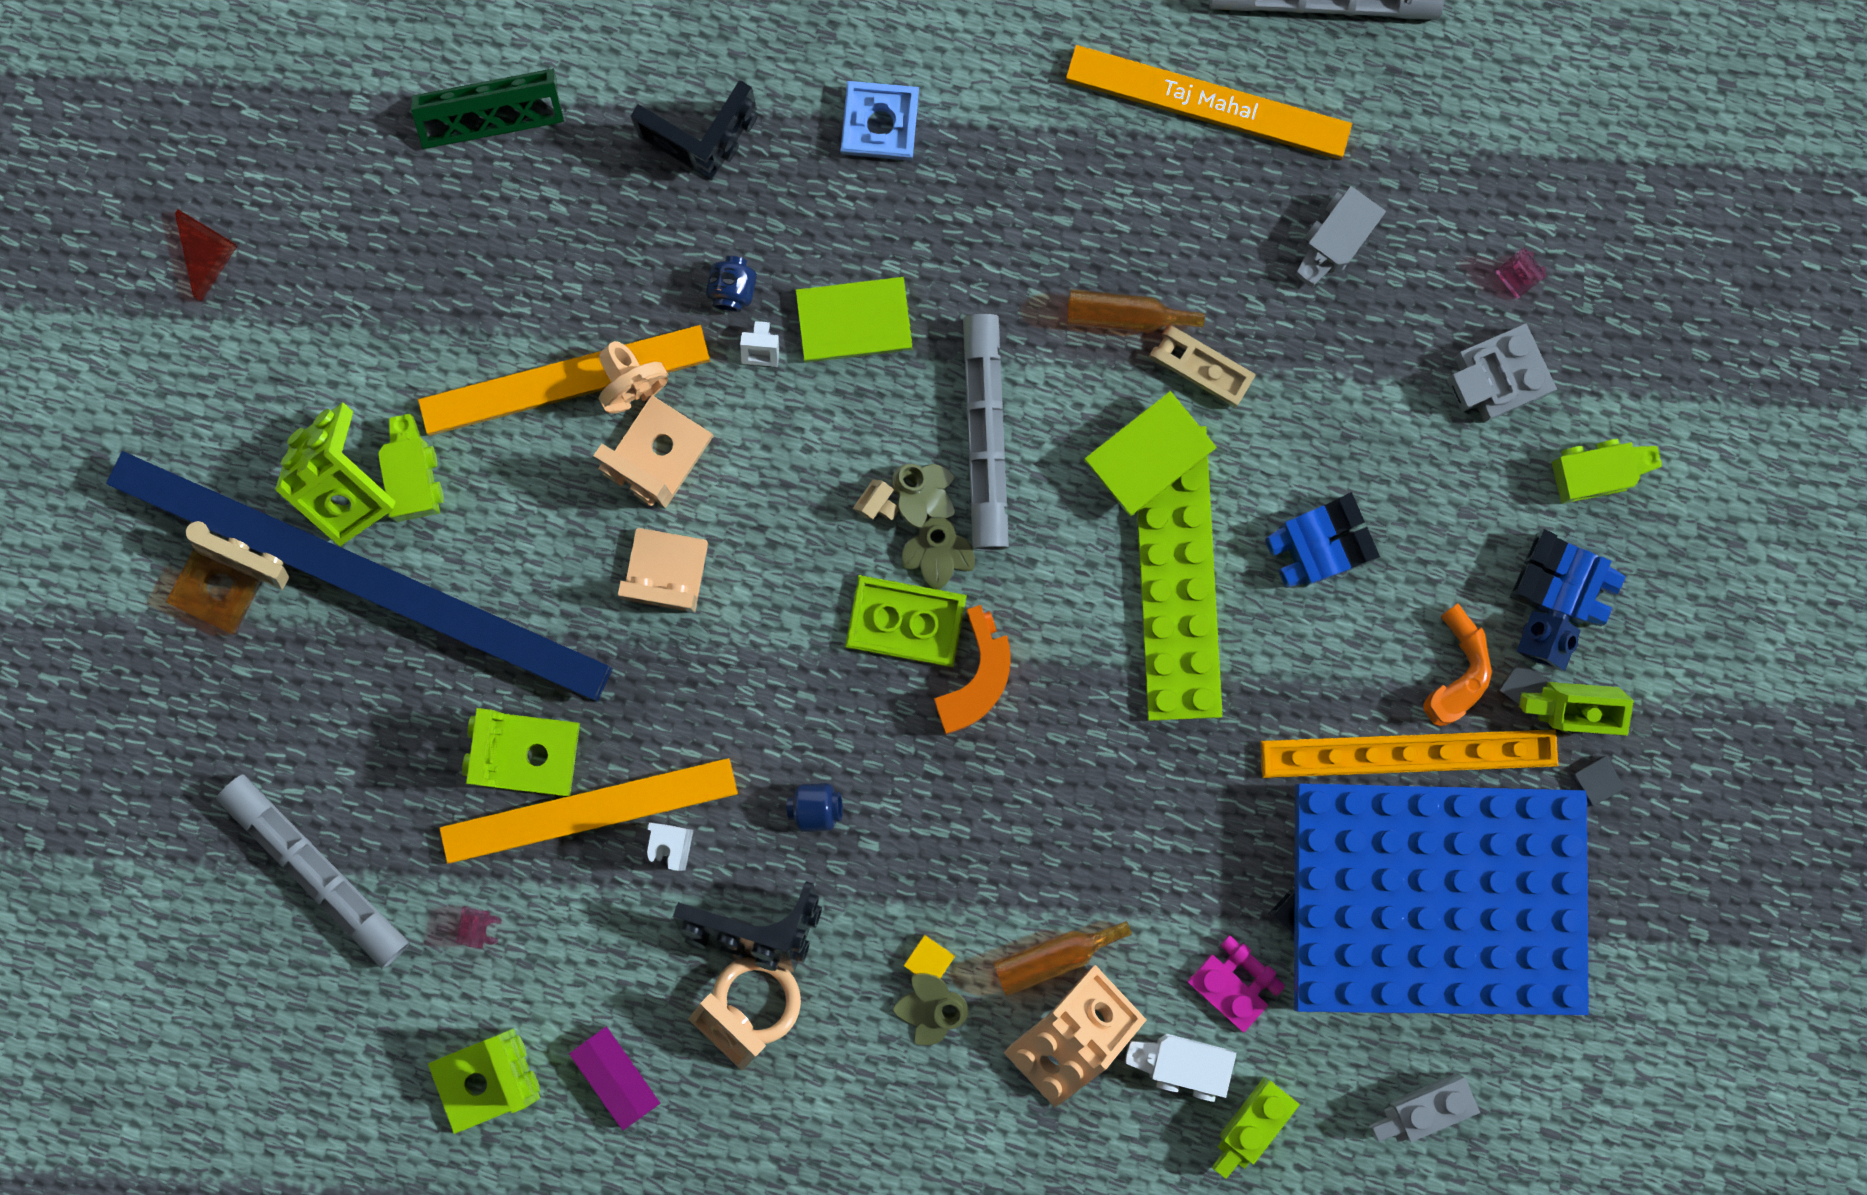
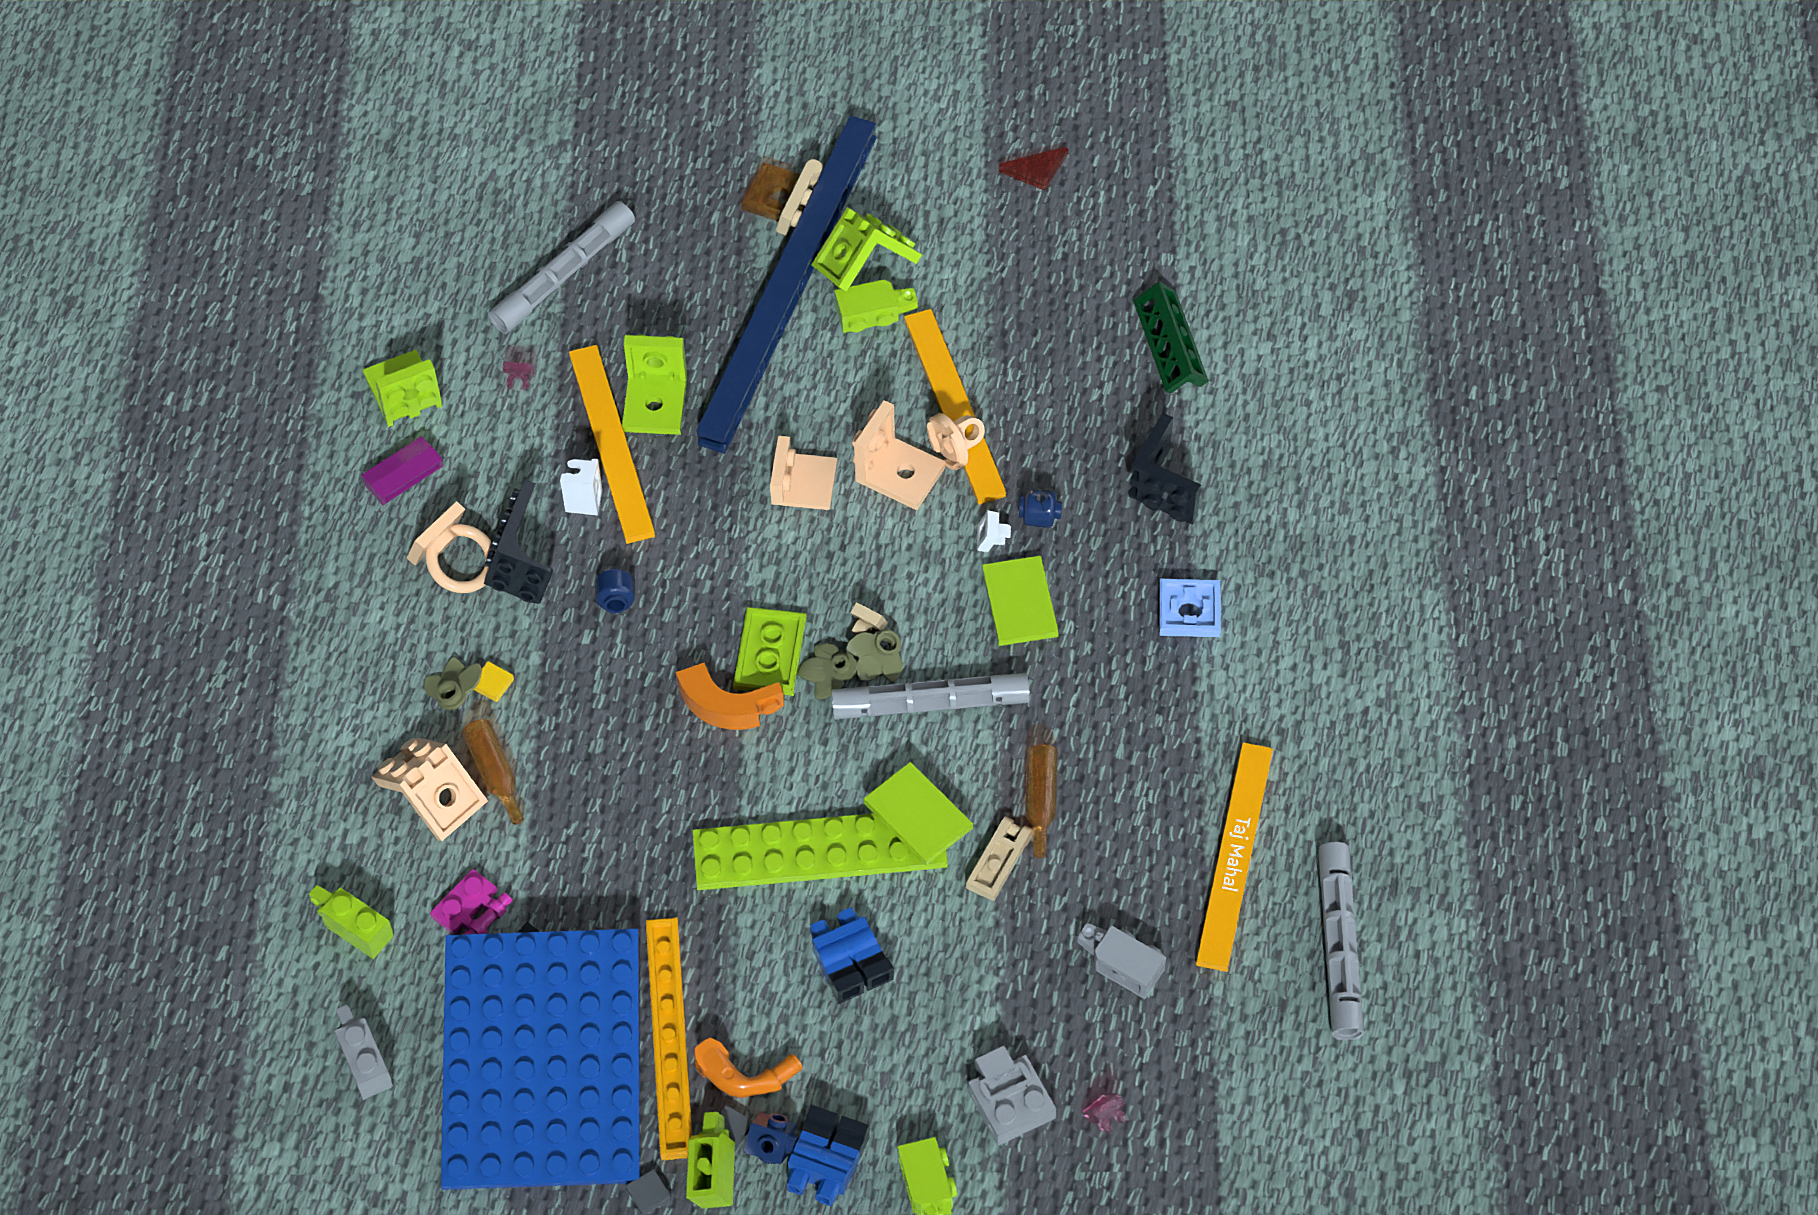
camera: 90 degrees right, 25 degrees down
(1184, 1063) = (403, 868): white hinge -> none

